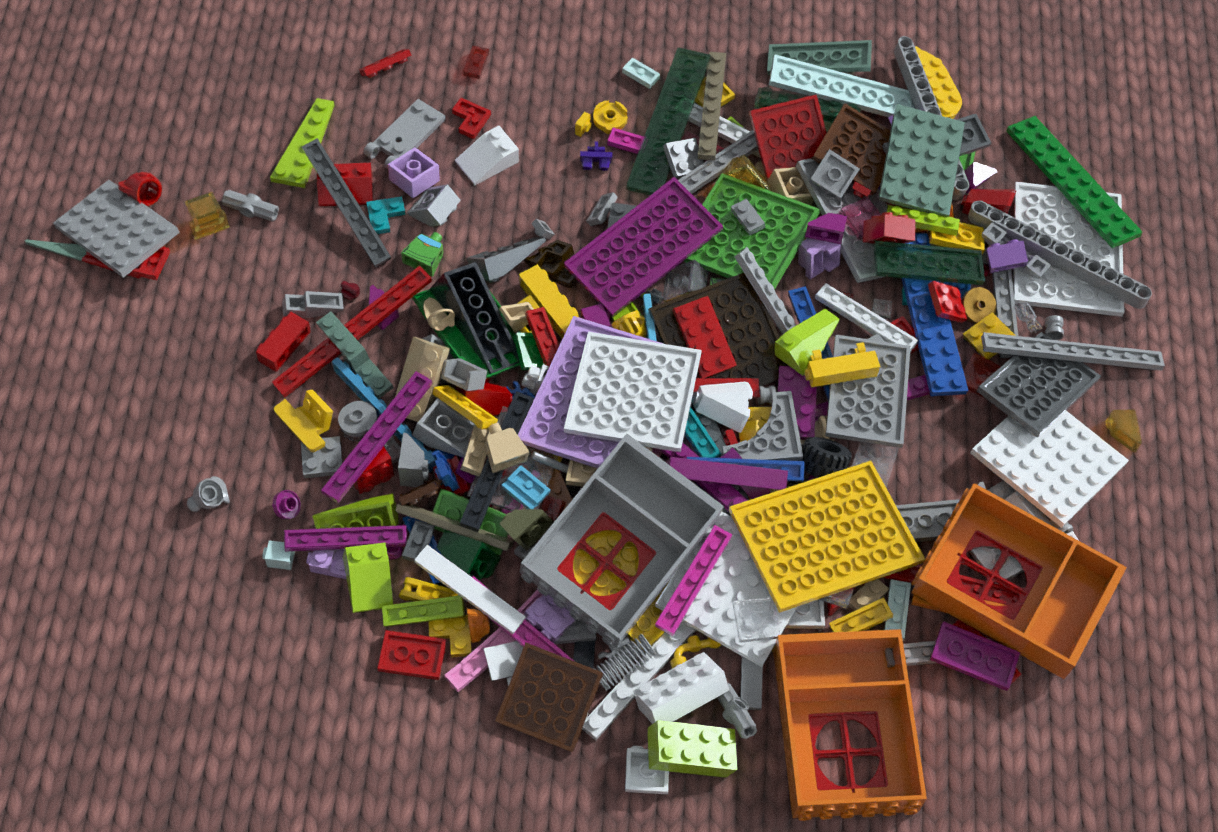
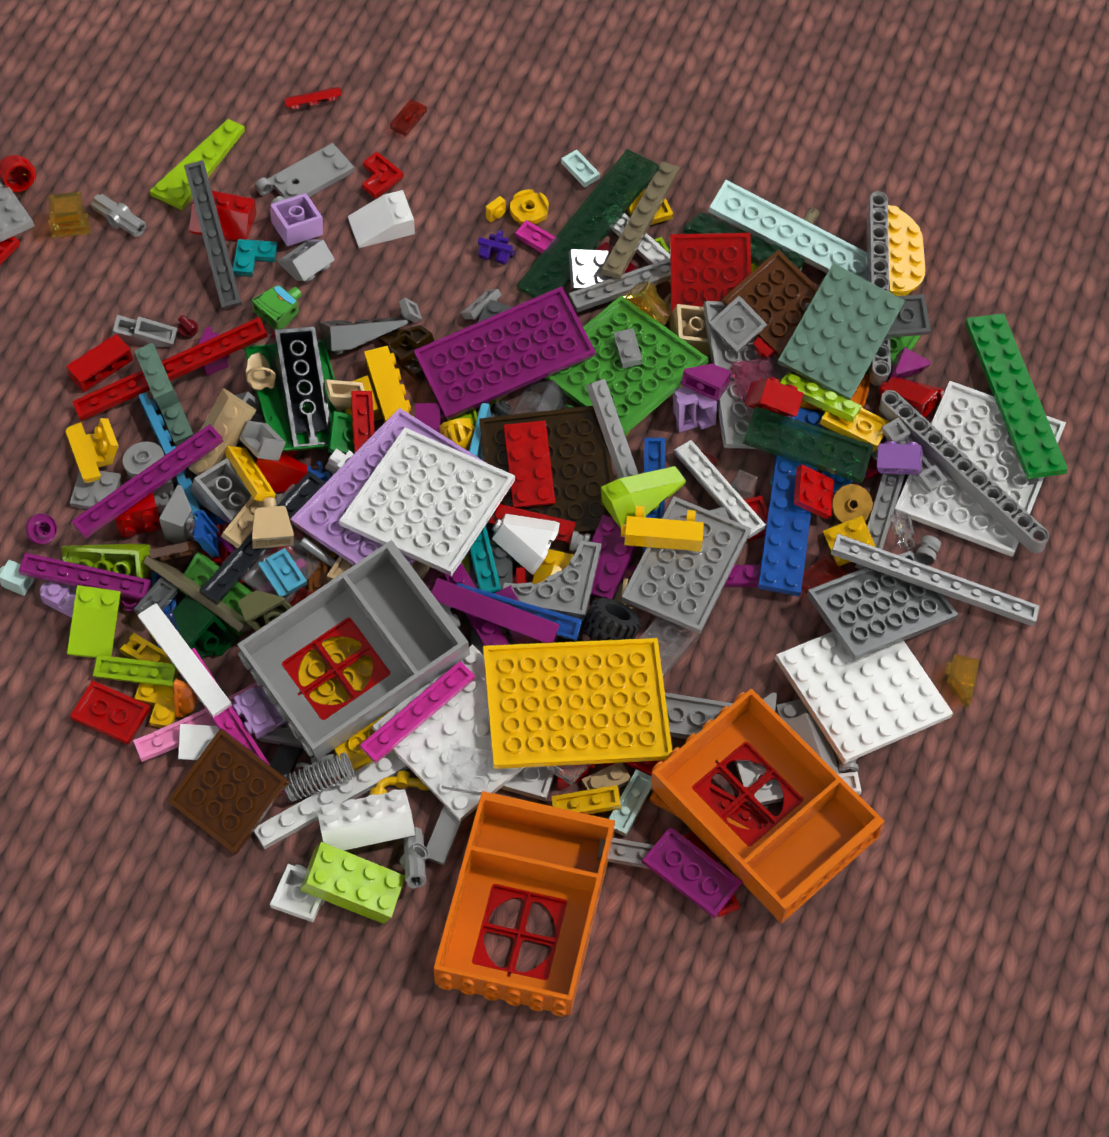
camera: 20 degrees right, 0 degrees up
(837, 56) = (793, 195): sand green plate -> none

